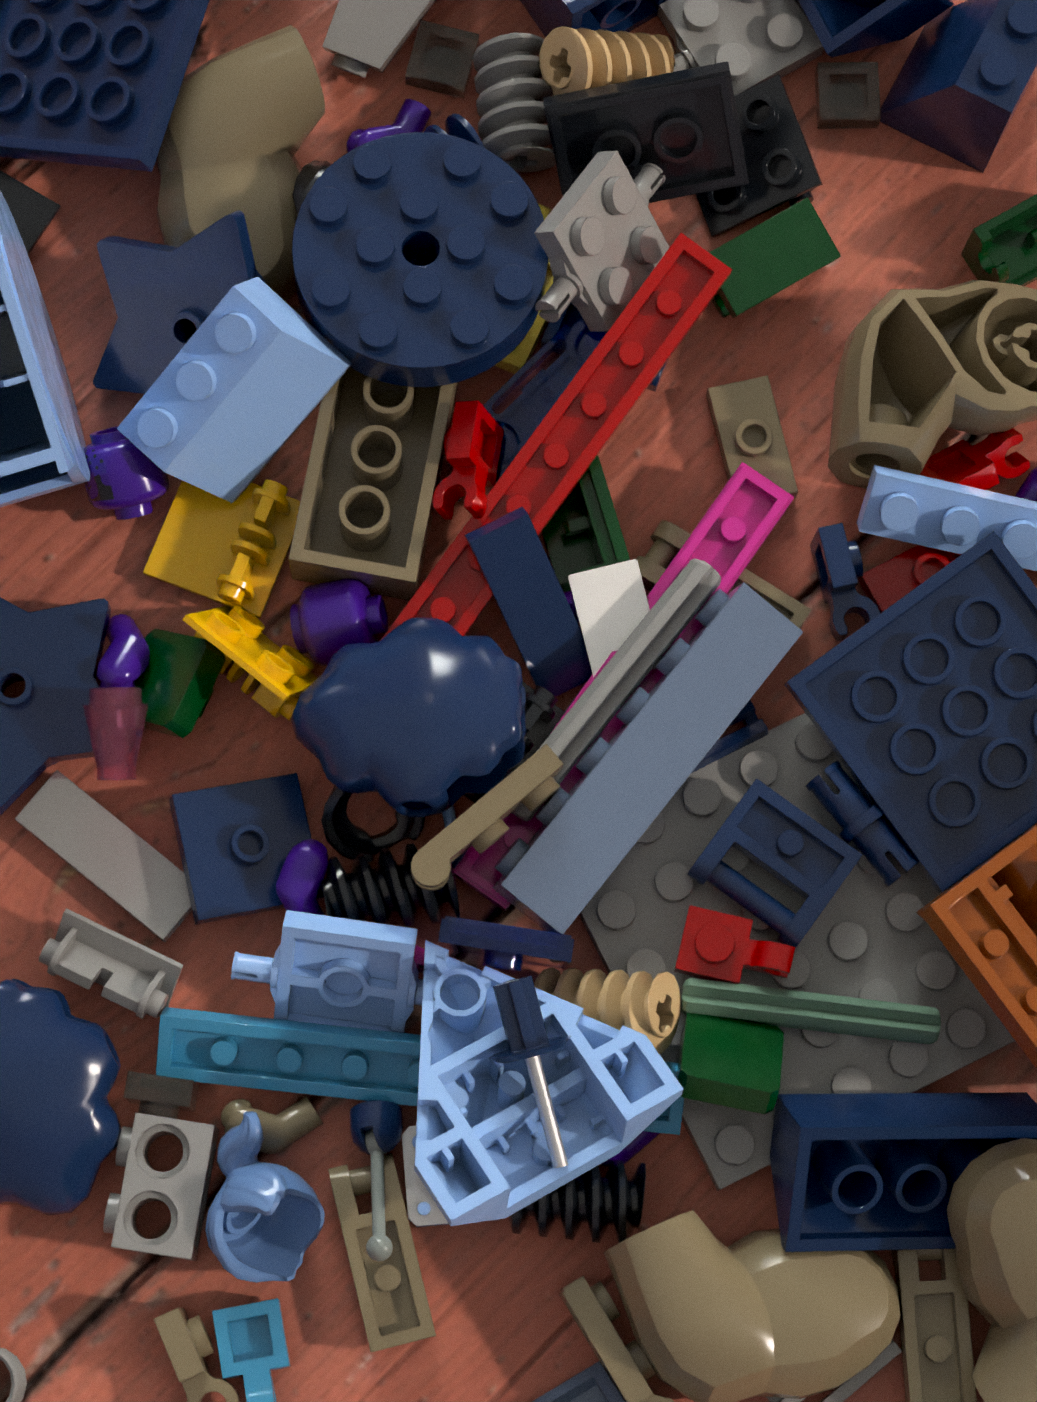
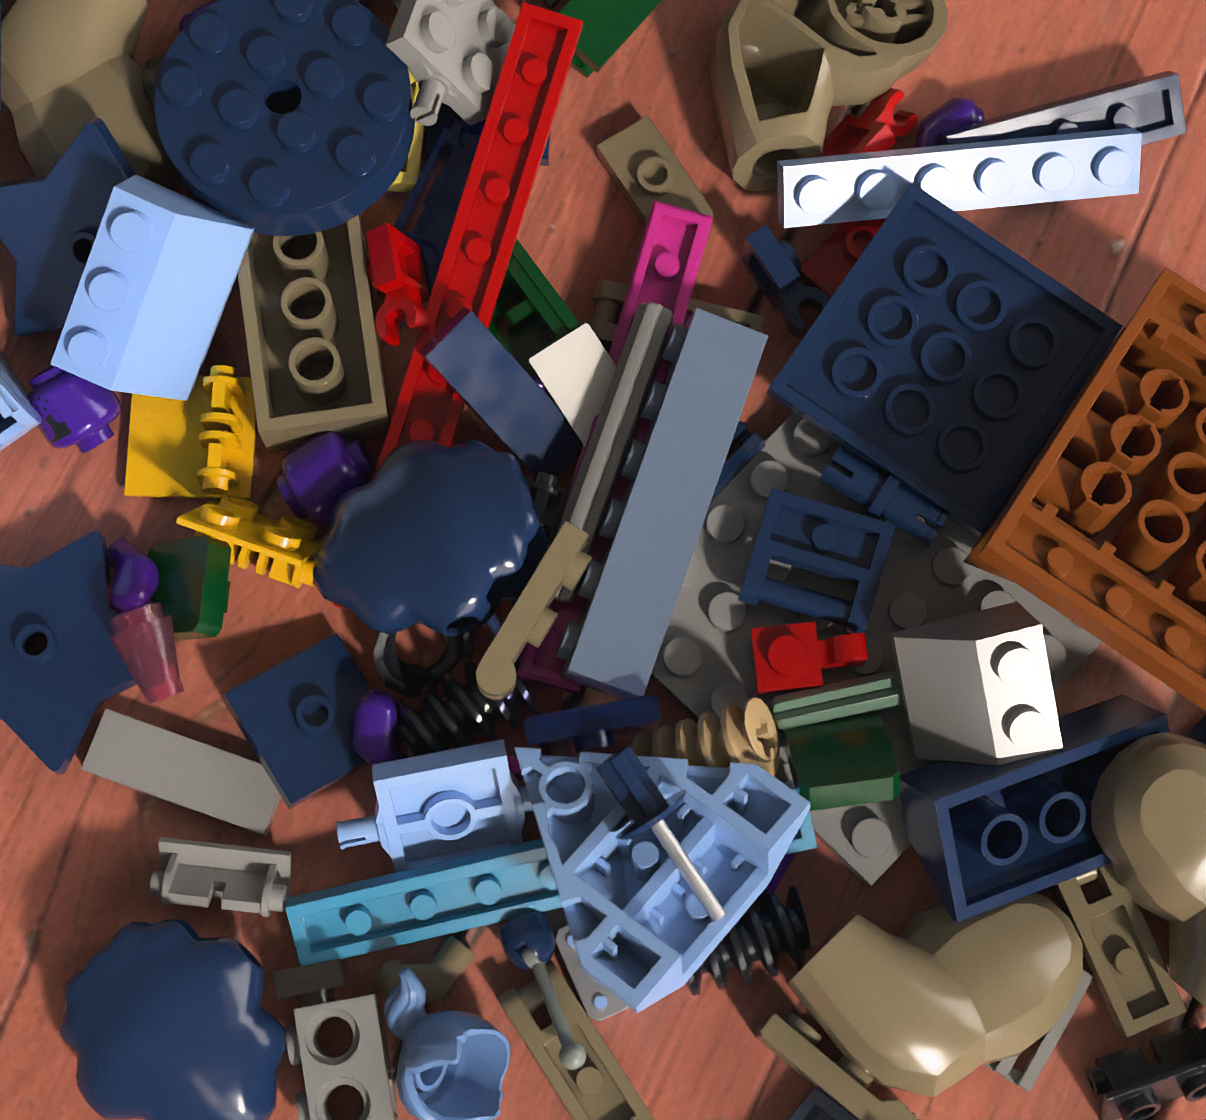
camera: 15 degrees left, 0 degrees up
(883, 1036) = (978, 687): none -> light grey slope

